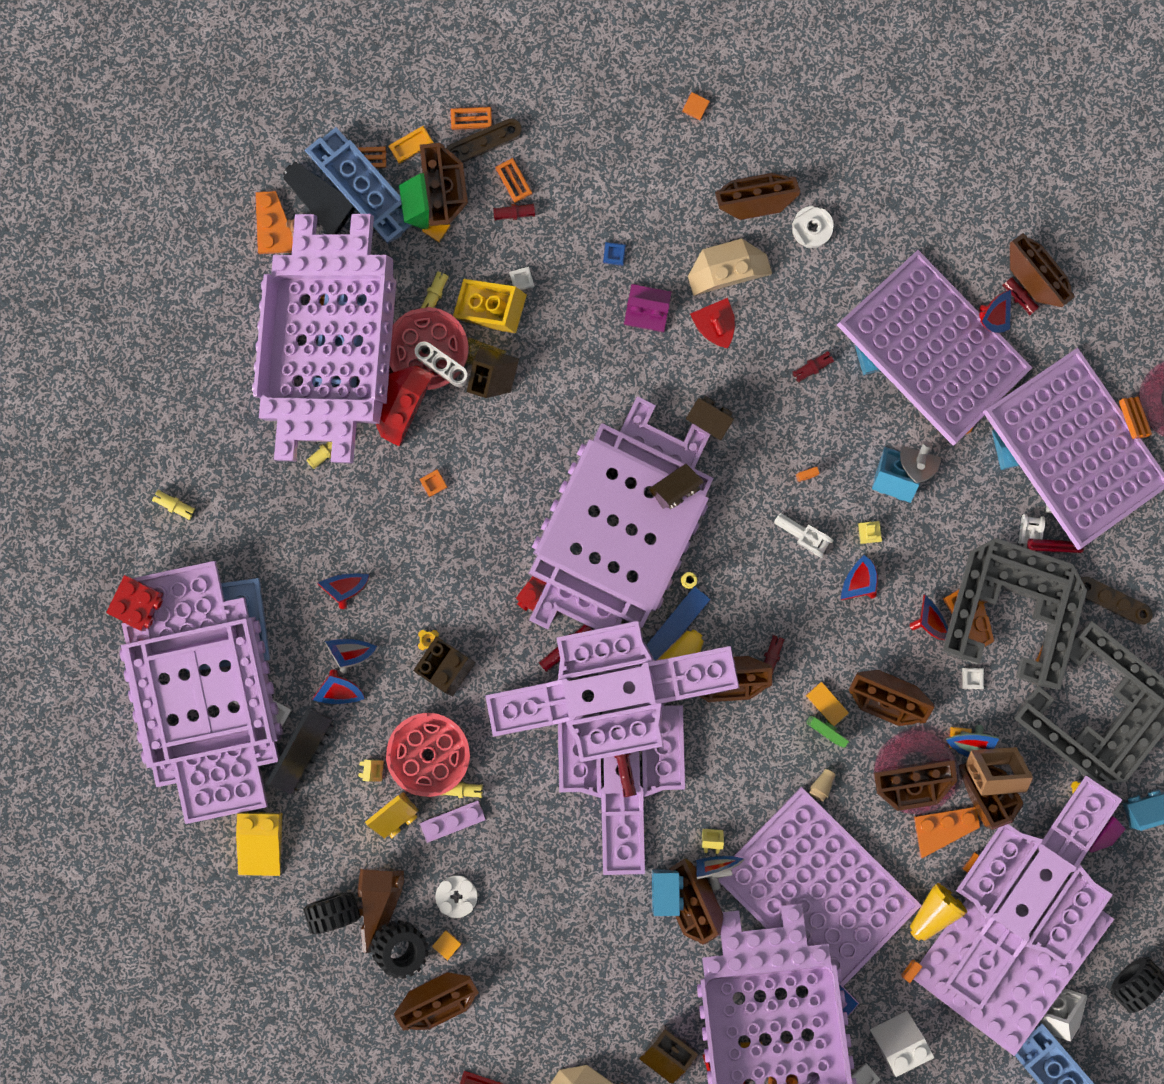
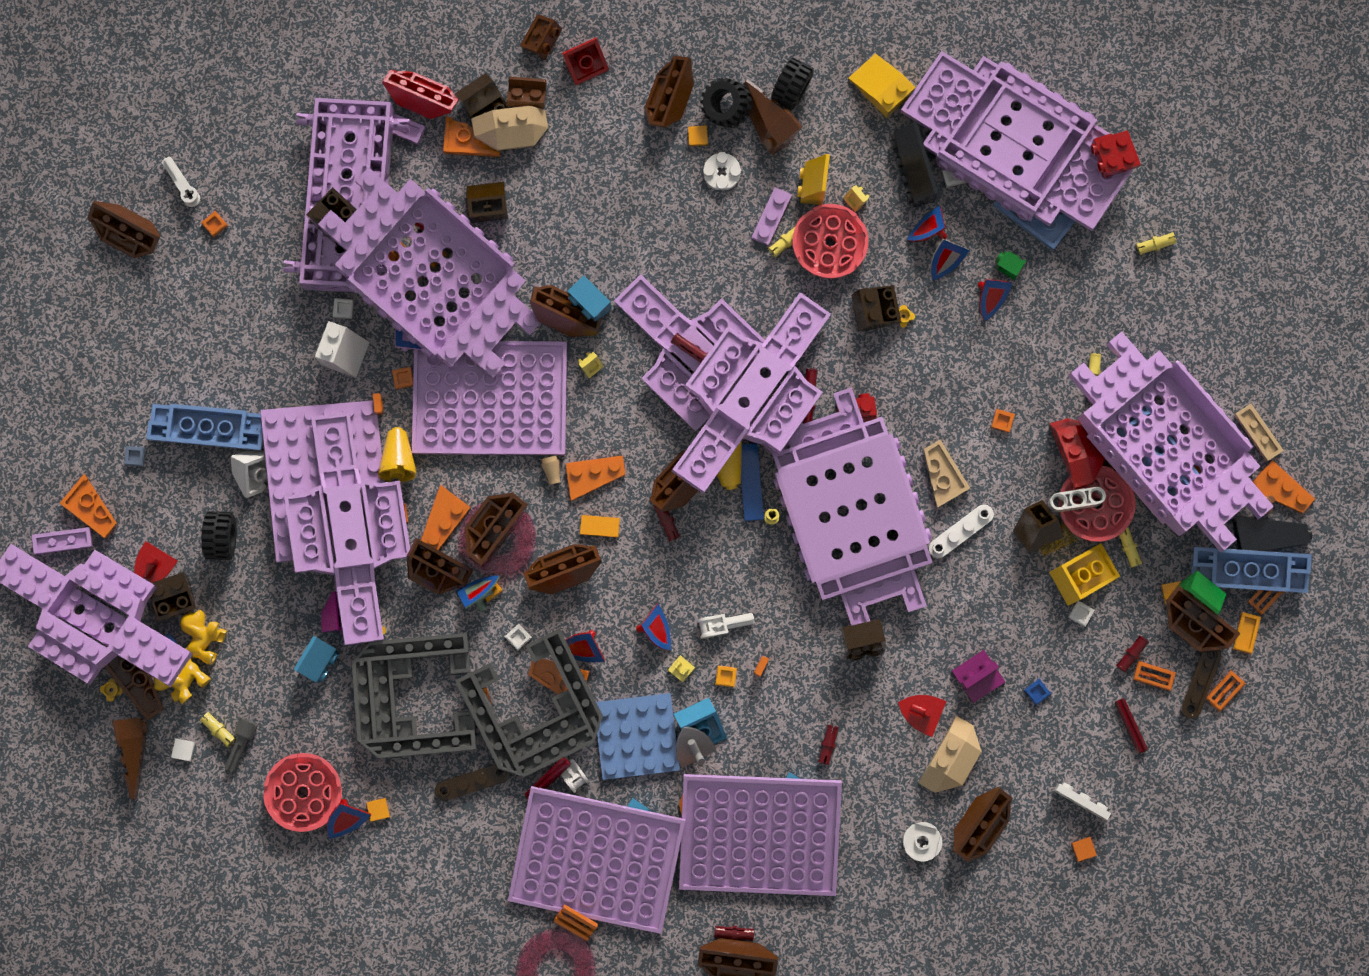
camera: 135 degrees right, 5 degrees down
(246, 283) = (1258, 432): none -> tan plate
(305, 599) = (1009, 264): none -> green window
(520, 485) = (944, 474): none -> tan wing
(550, 429) = (961, 531): none -> white plate
(569, 160) = (1131, 726): none -> dark red axle
(661, 140) = (1082, 800): none -> white plate
(675, 486) = (842, 565): dark brown slope -> none
(716, 868) = (571, 347): shield -> none
(793, 750) = (592, 474): none -> orange wing
(828, 731) = (583, 505): bright green plate -> none
(840, 493) = (726, 676): none -> light orange tile
(870, 974) = (403, 378): none -> orange tile
(953, 513) = (637, 737): none -> medium blue plate
(990, 785) = (435, 577): medium nougat window -> none
(997, 315) = (738, 901): shield -> none

